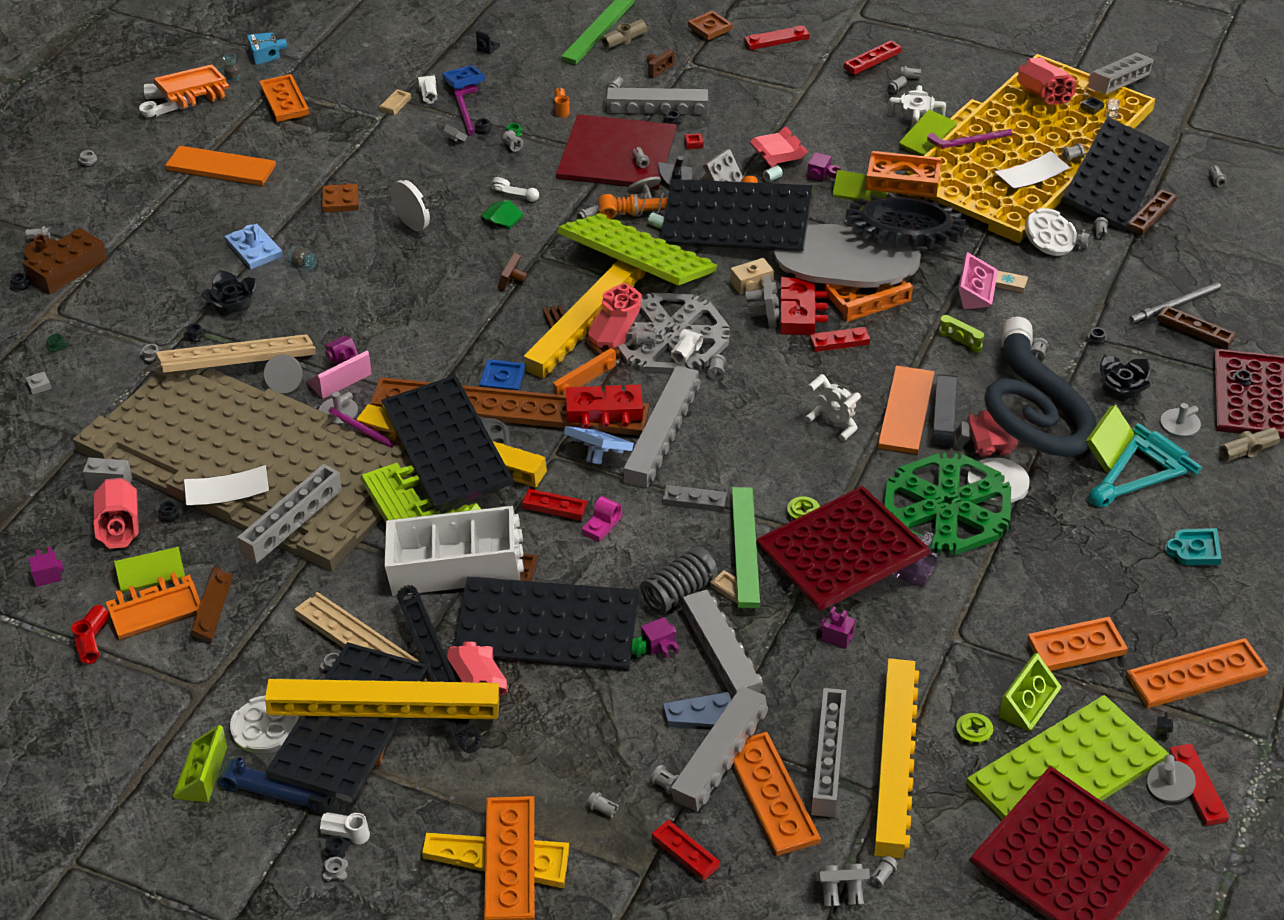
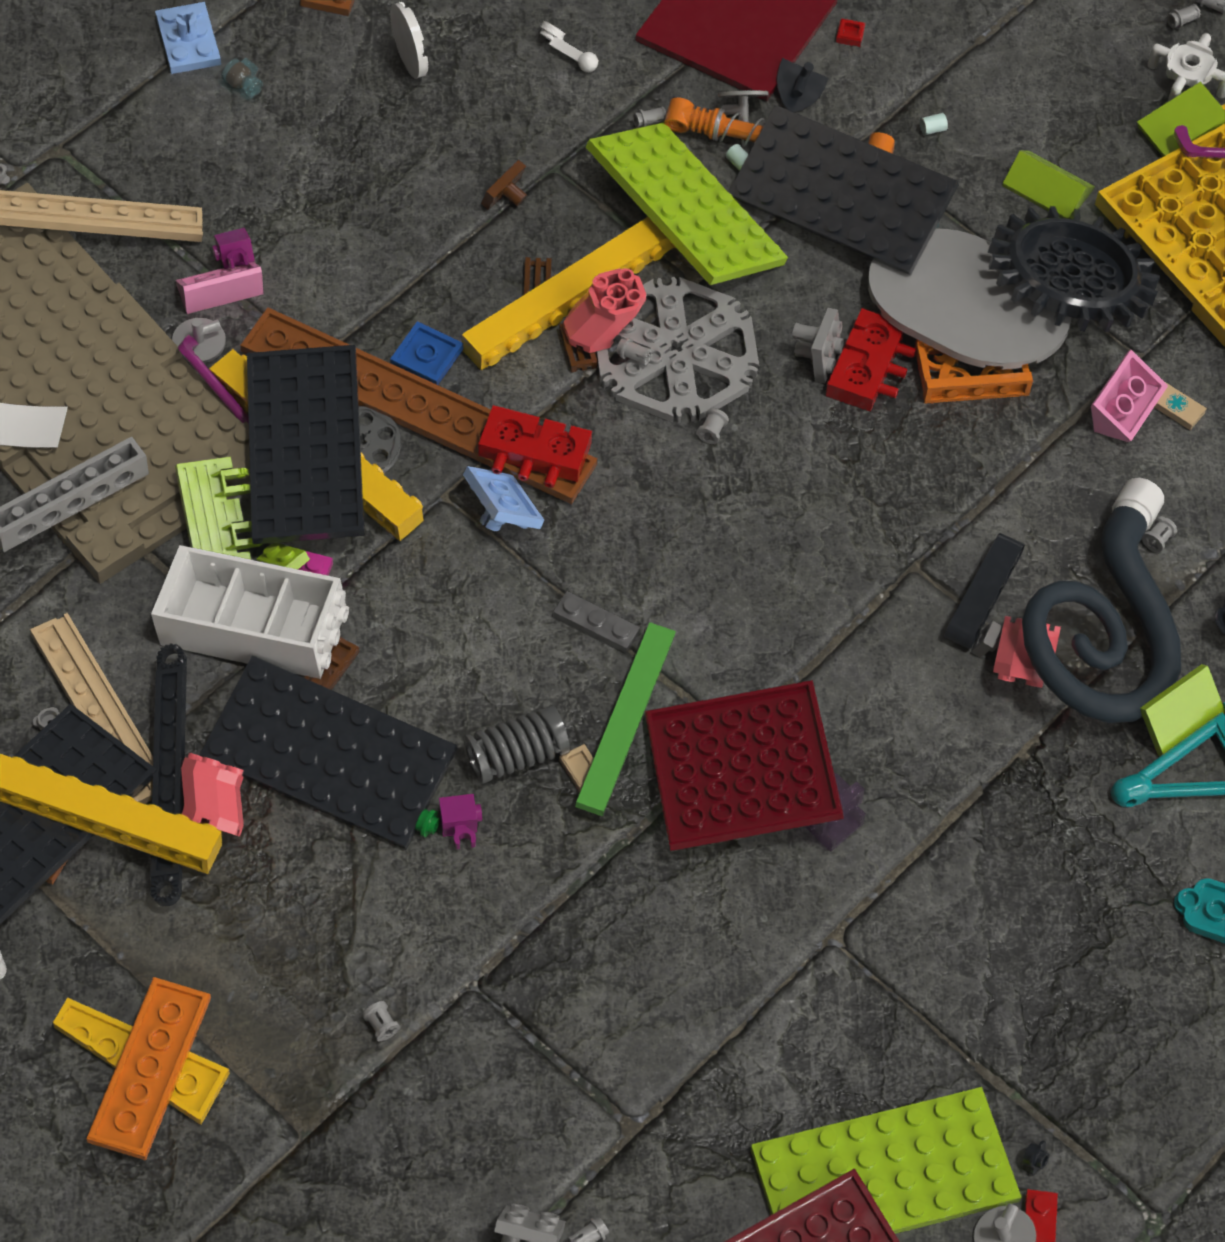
camera: 15 degrees right, 15 degrees up
(194, 332) = (61, 158): black plate -> none
(229, 293) = (125, 110): black brick -> none
(283, 373) = (145, 265): light grey shield -> none
(503, 213) = (535, 83): green slope -> none
(555, 504) = (412, 575): red plate -> none
(586, 372) = (534, 383): orange plate -> none
(602, 804) = (291, 1029): light grey pin -> none
(605, 517) = (468, 615): dark pink plate -> none
(641, 159) = (760, 48): light grey pin -> none
(661, 427) = (599, 499): light grey brick -> none
(685, 850) = (364, 1125): red plate -> none
(687, 344) = (687, 379): white piece -> none
(696, 711) = (472, 941): sand blue wing -> none
(719, 748) = (462, 1003): light grey brick -> none
(720, 643) = (531, 856): light grey brick -> none
(722, 168) = (860, 105): light grey plate -> none
(750, 275) = (825, 290): tan brick -> none
(774, 796) = (503, 1082): orange tile -> none
(778, 147) = (956, 85): coral brick -> none
(795, 505) = (719, 676): lime gear -> none
(820, 167) = (1005, 133): magenta brick -> none
(828, 403) = (839, 543): white plate -> none
(829, 753) = (593, 1053): light grey brick -> none
(837, 628) = (687, 880): magenta brick -> none
(839, 339) = (899, 430): red plate -> none
(895, 759) = (674, 1086): yellow brick -> none
(906, 410) = (936, 572): orange tile -> none
(917, 184) = (1106, 209): orange fence -> none
(961, 332) = (1067, 474): lime plate -> none
(962, 501) = (938, 736): green plate -> none
(979, 722) = (806, 1071): lime gear -> none
(1013, 474) = (1004, 723): white tile -> none
(1029, 694) = (885, 1055): lime slope -> none
(1078, 643) = (984, 1002): orange plate -> none
(1196, 672) = (1120, 1094): orange tile -> none

